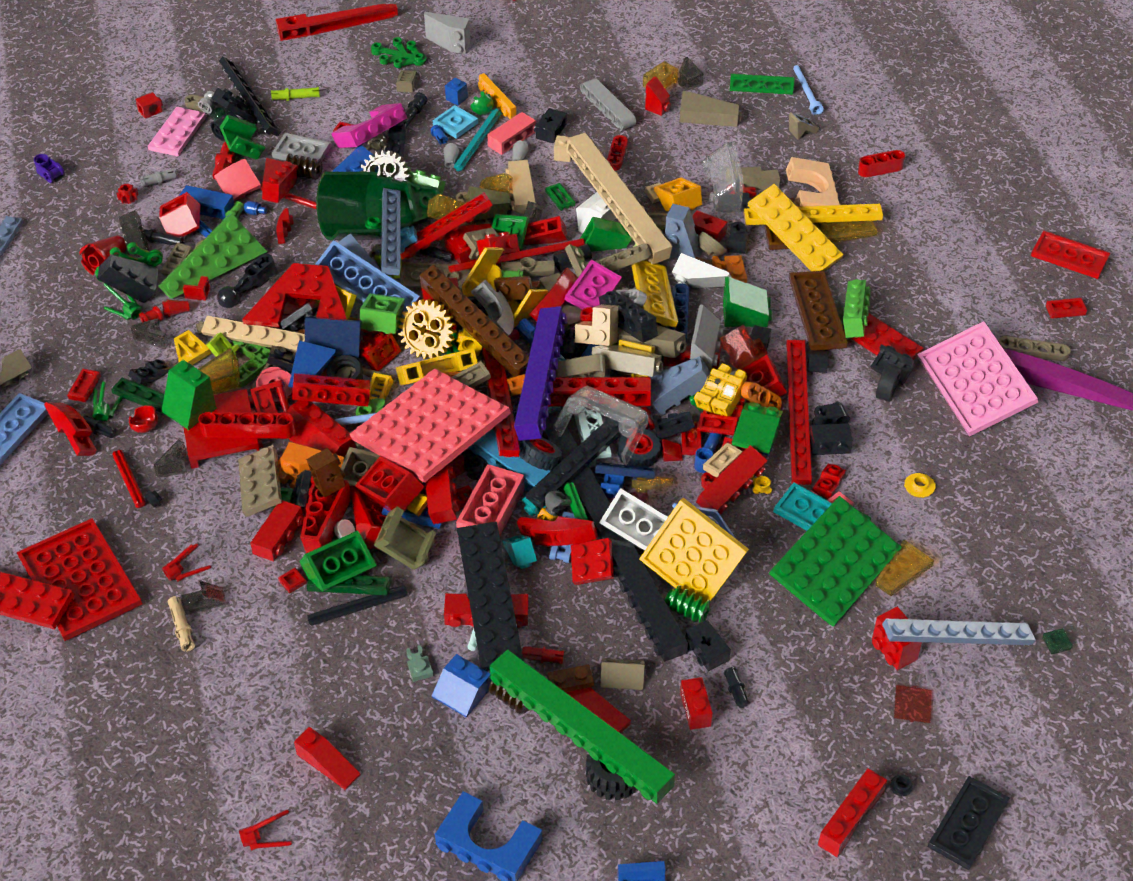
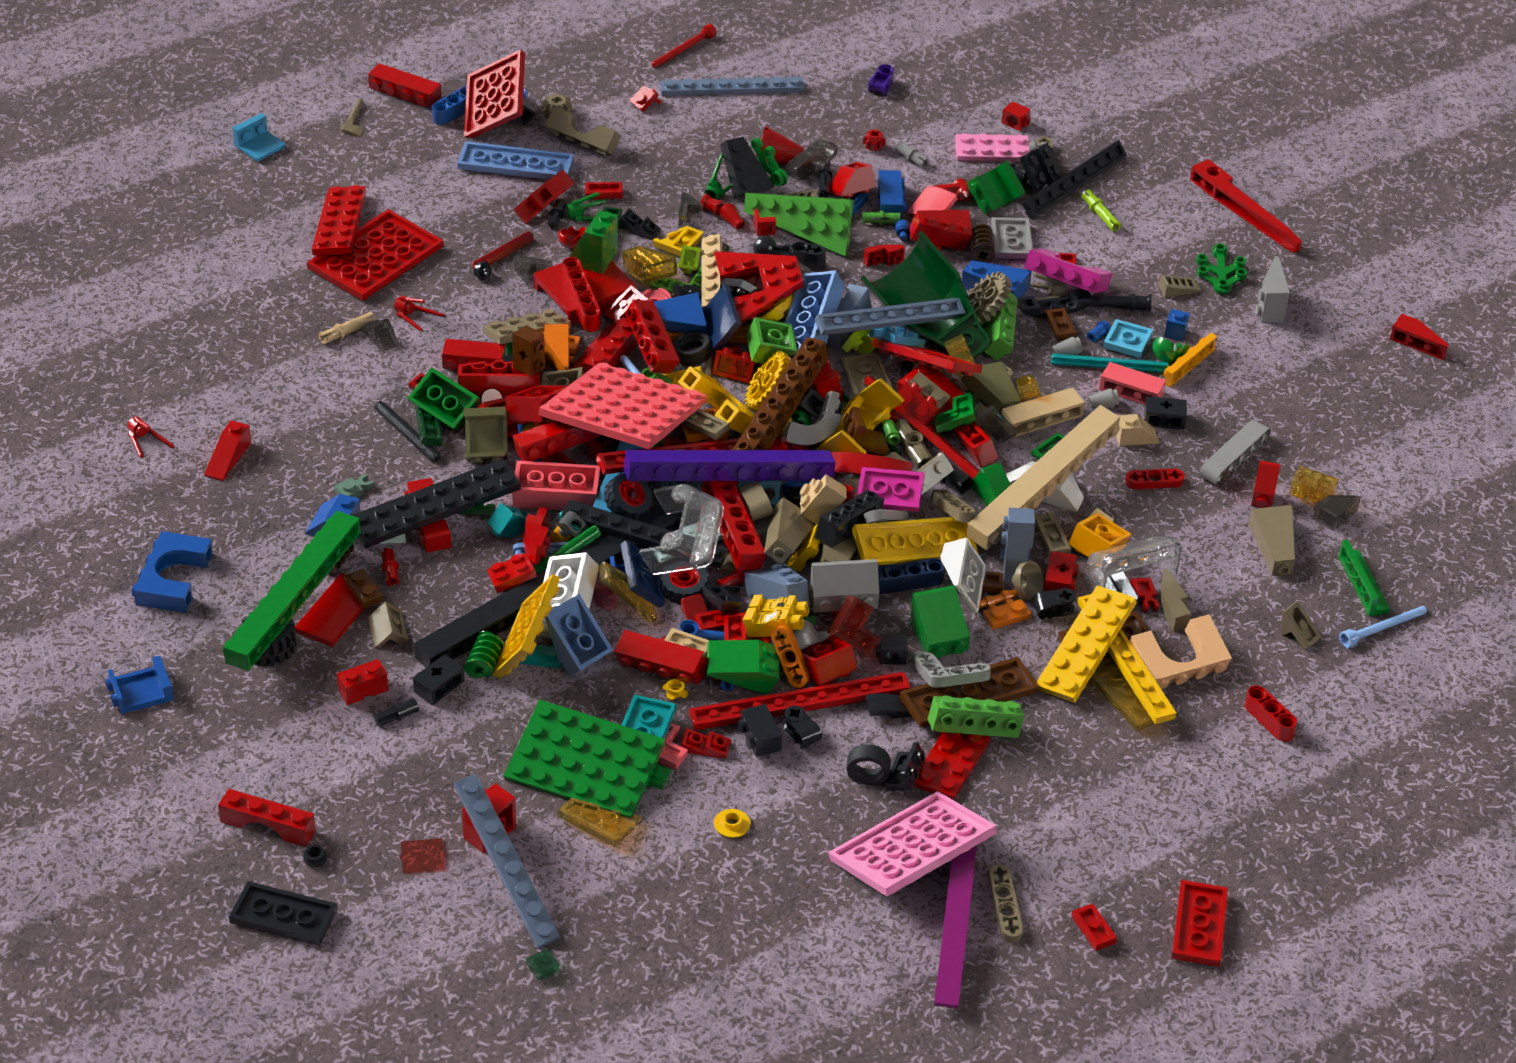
camera: 70 degrees right, 5 degrees down
(420, 151) = (1060, 324): none -> reddish brown plate
(809, 315) = (938, 676): none -> light grey beam

